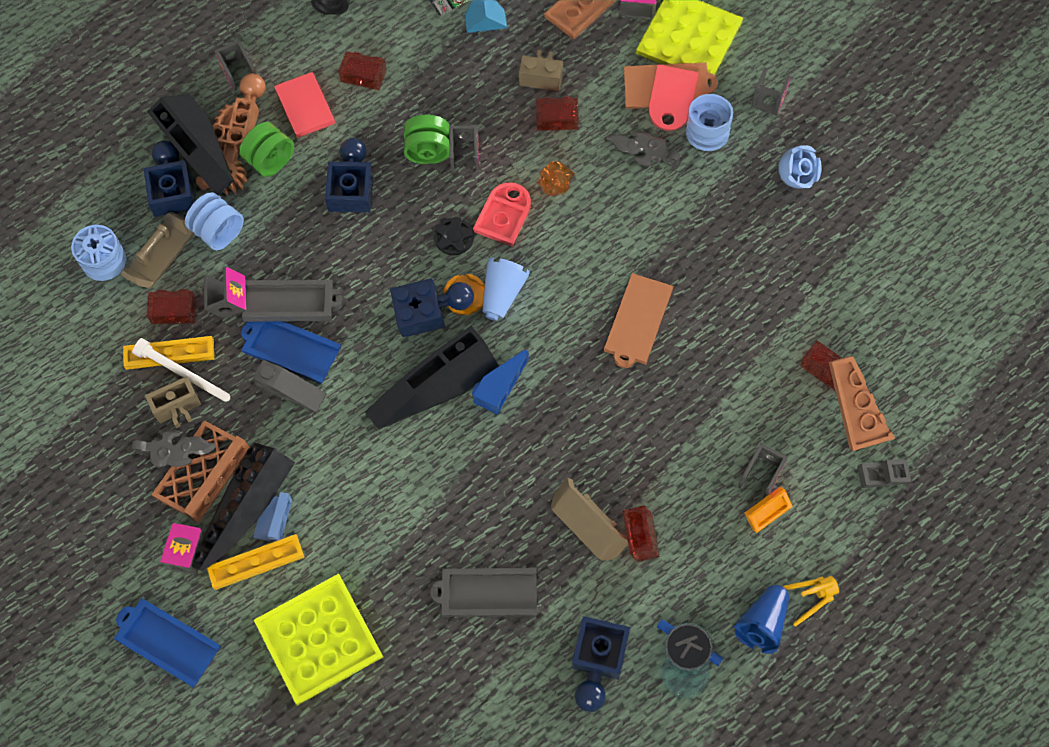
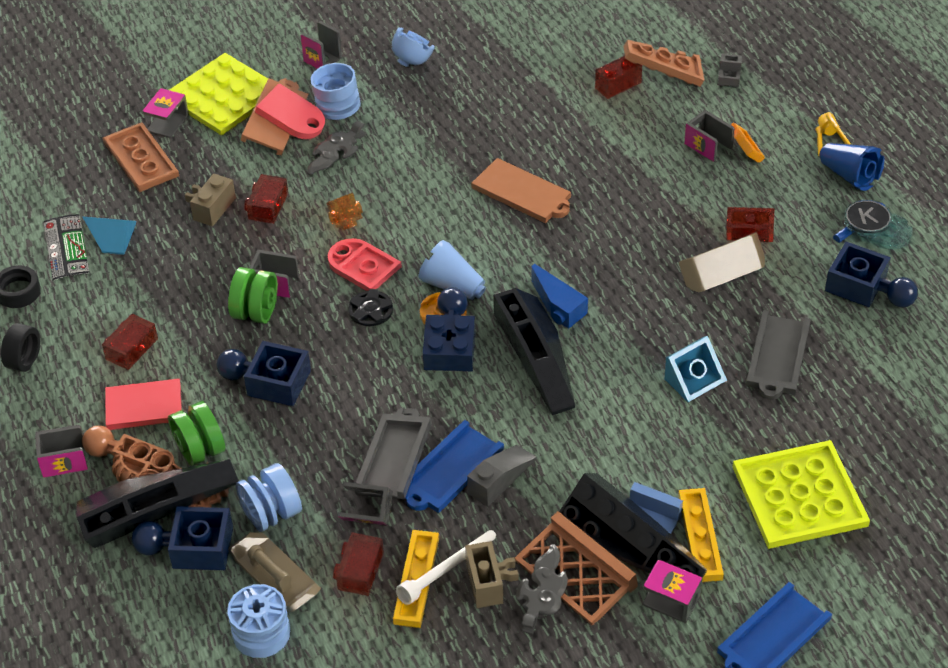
camera: 75 degrees left, 20 degrees down
(438, 521) = (694, 369): none -> dark azure slope

